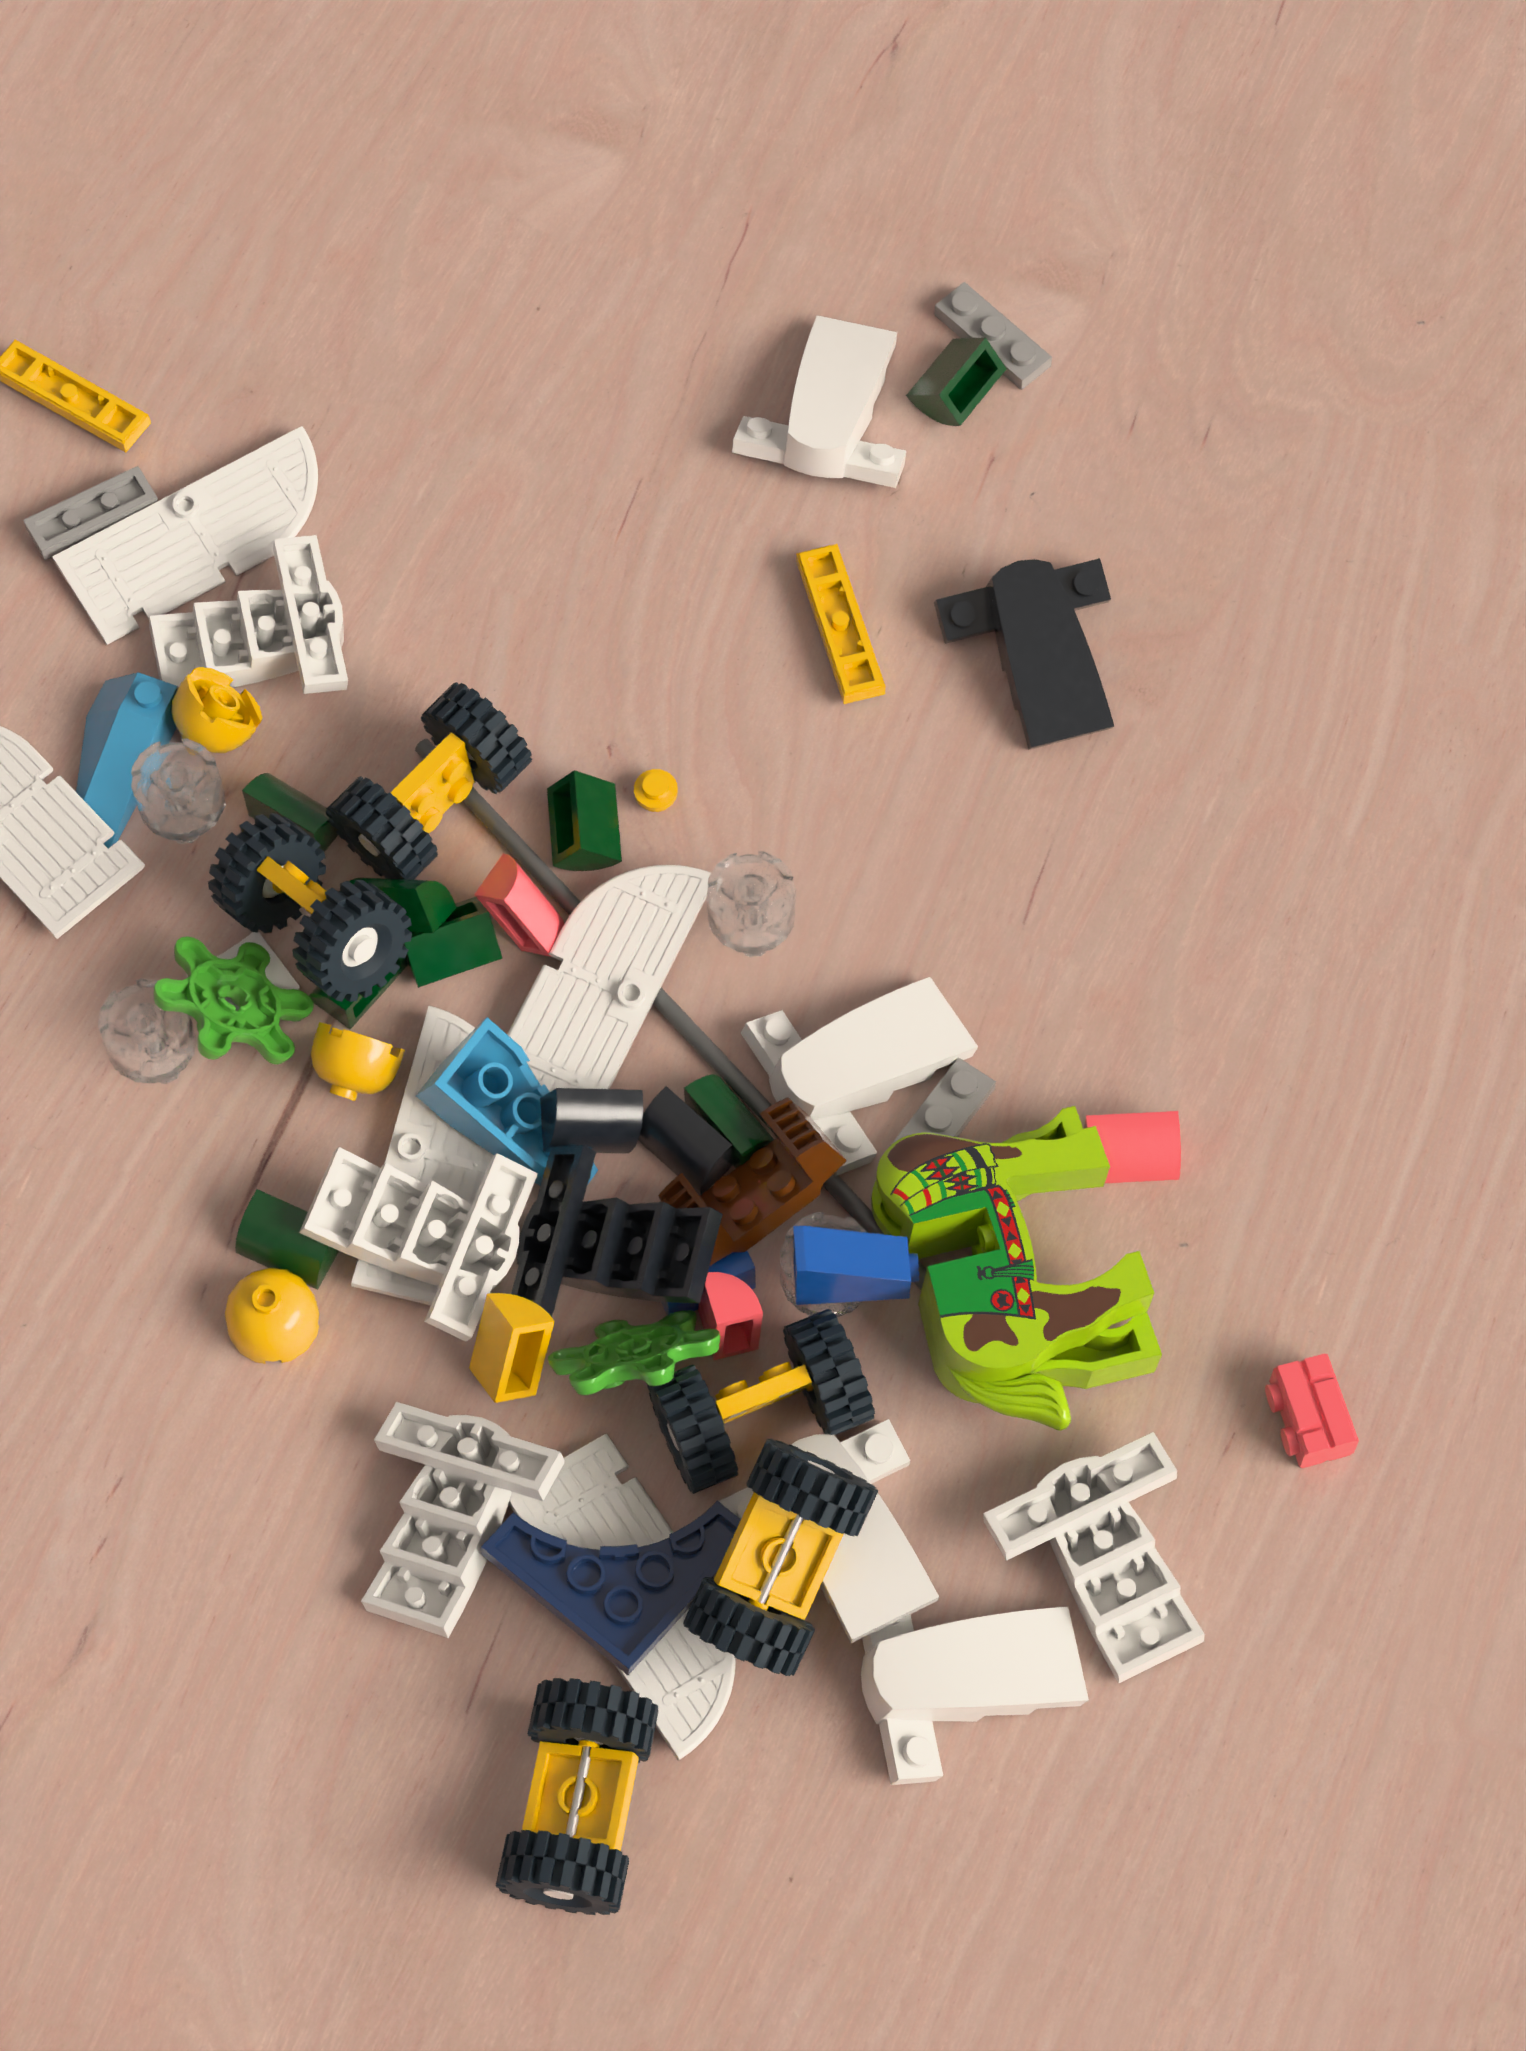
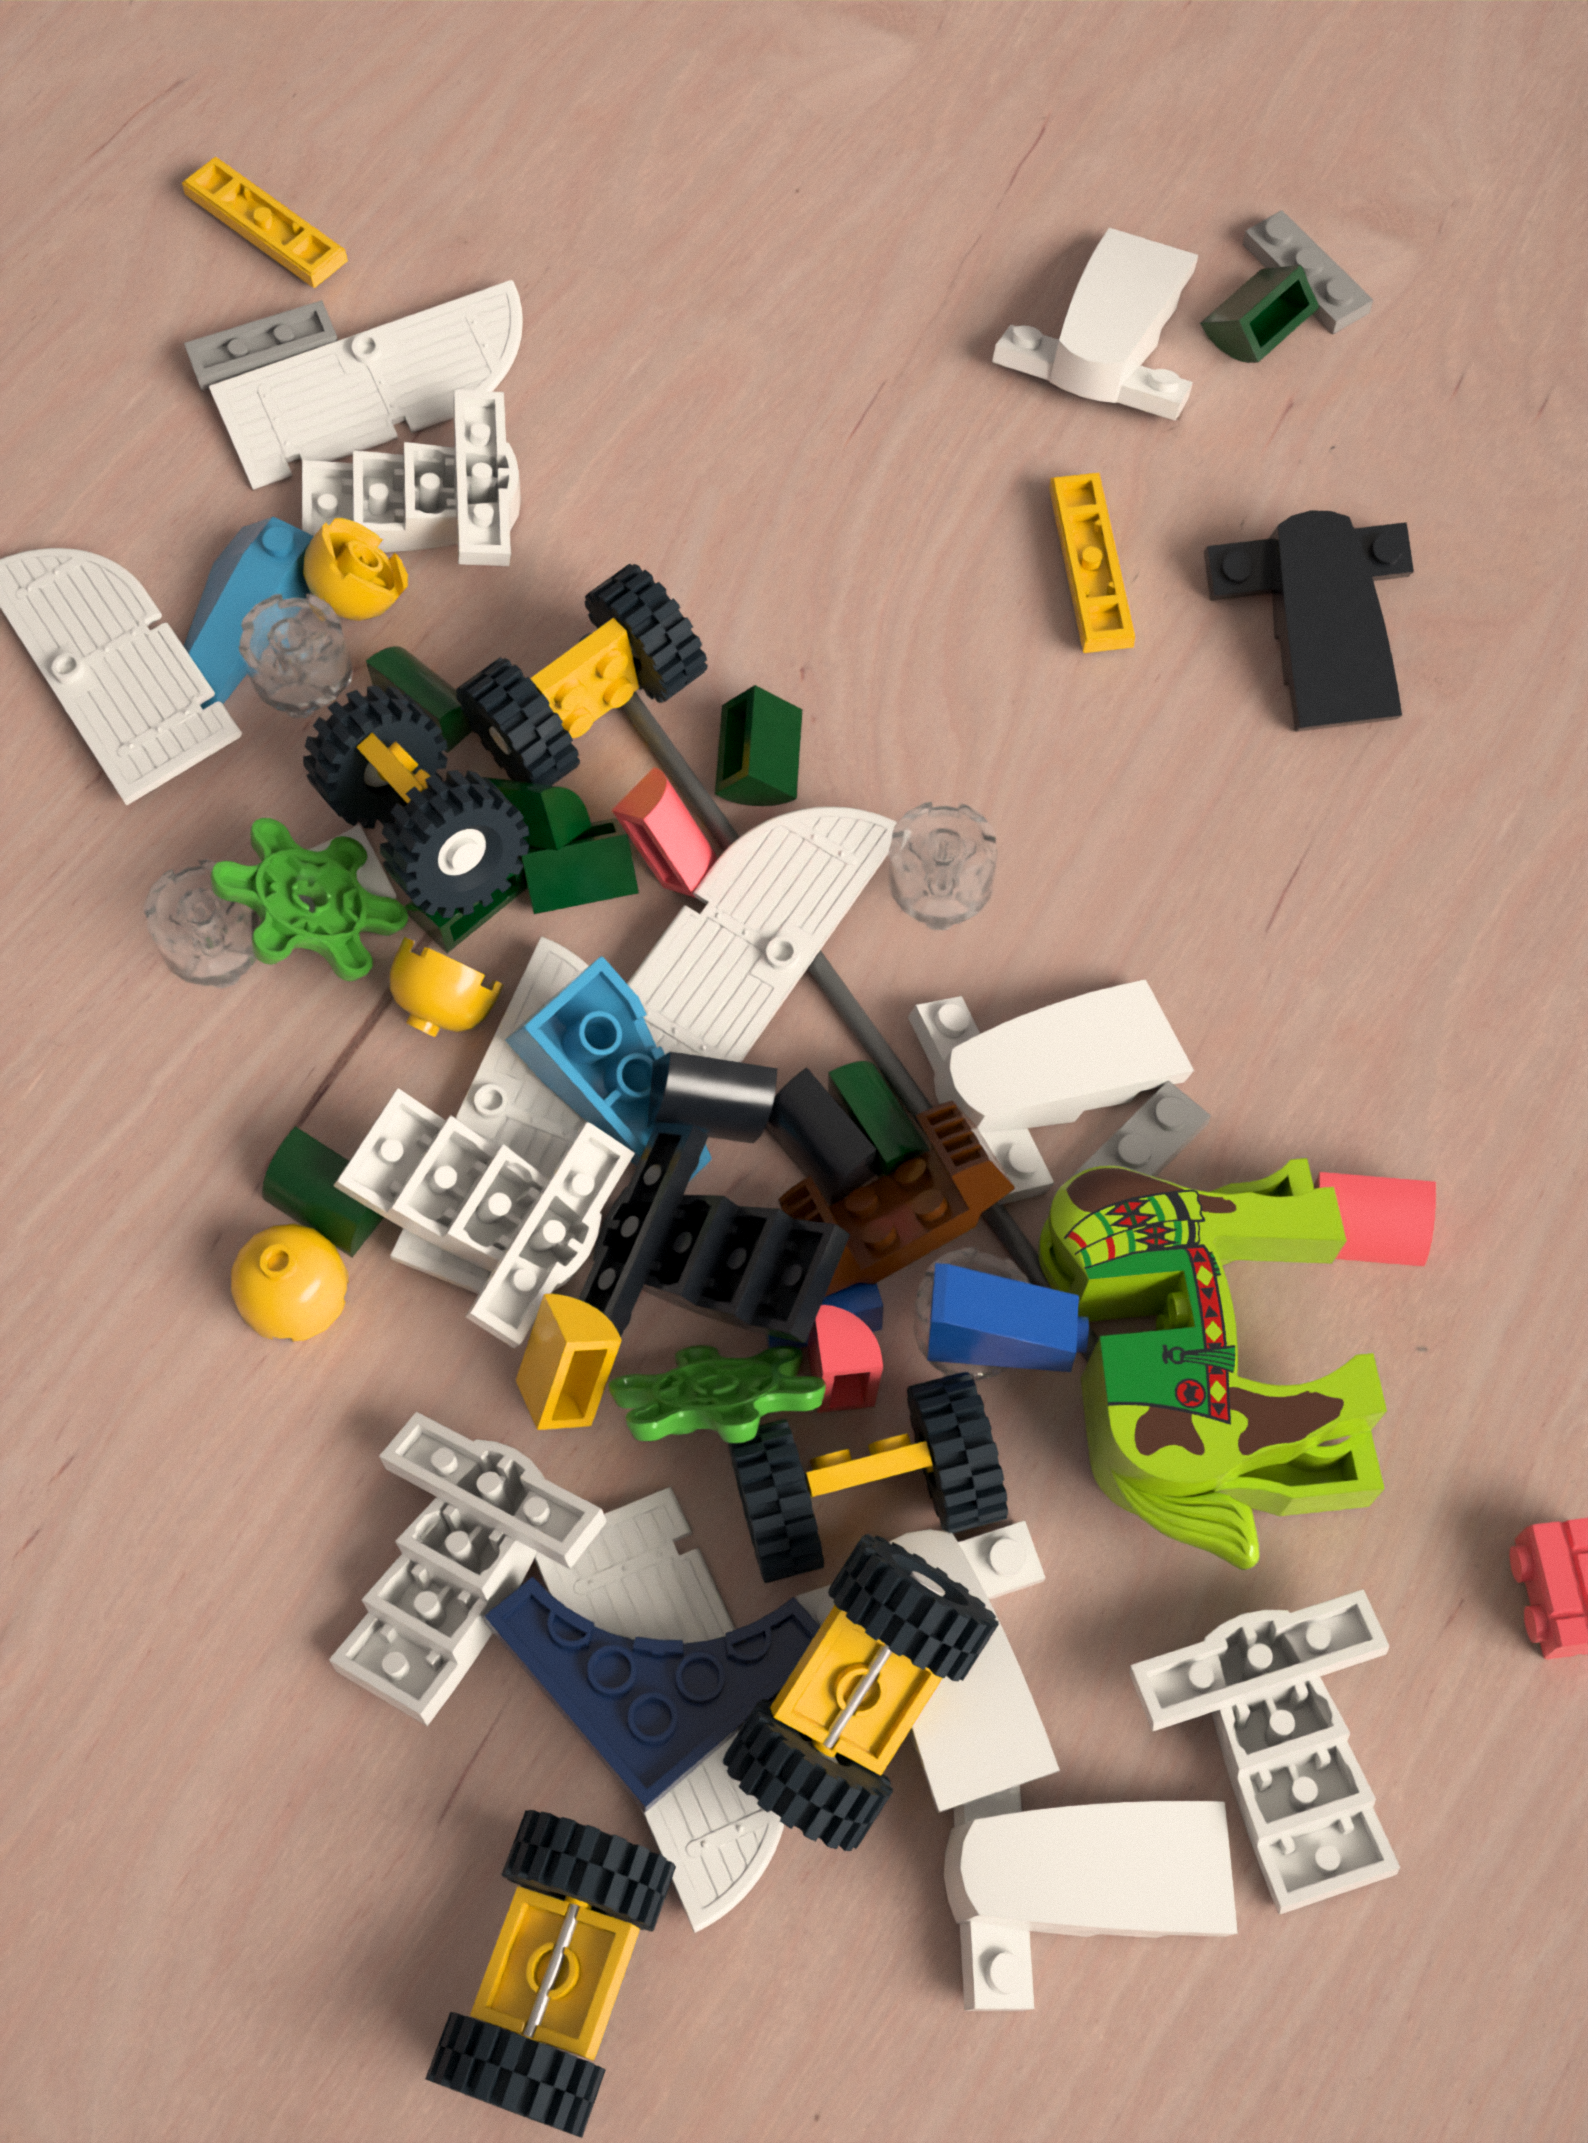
camera: 10 degrees right, 0 degrees up
(655, 790) = (848, 723): yellow plate -> none

